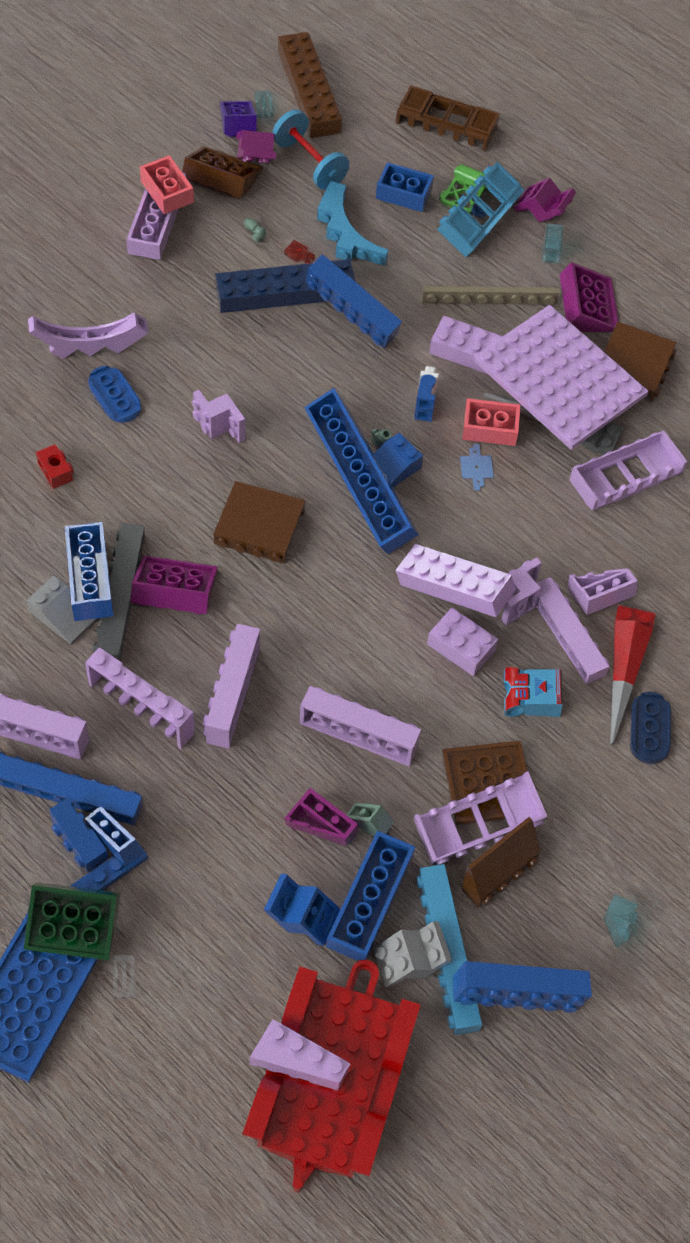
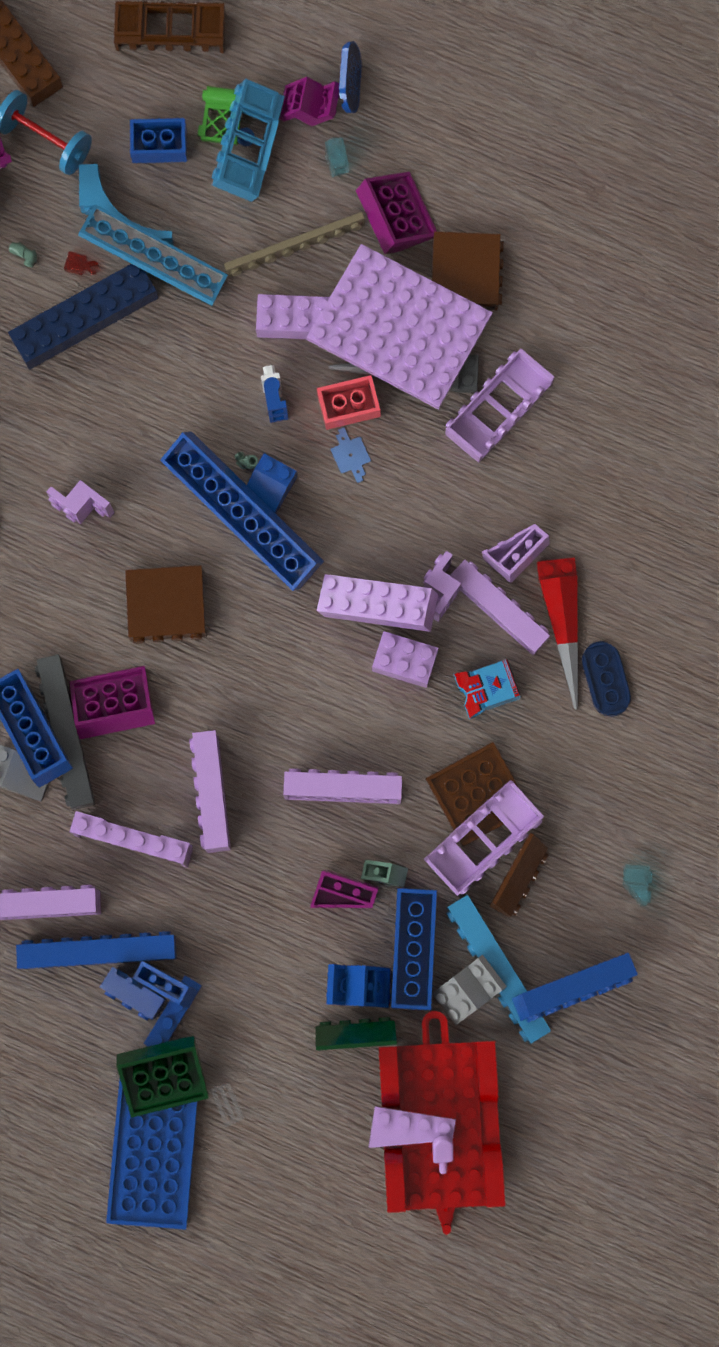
camera: 15 degrees left, 20 degrees up
(276, 955) = (355, 1035): none -> dark green slope
(324, 1093) = (442, 1152): none -> lavender piece
(353, 301) = (162, 317): blue brick -> none
(365, 259) = (152, 255): none -> dark azure piece
(586, 194) = (350, 77): none -> tile

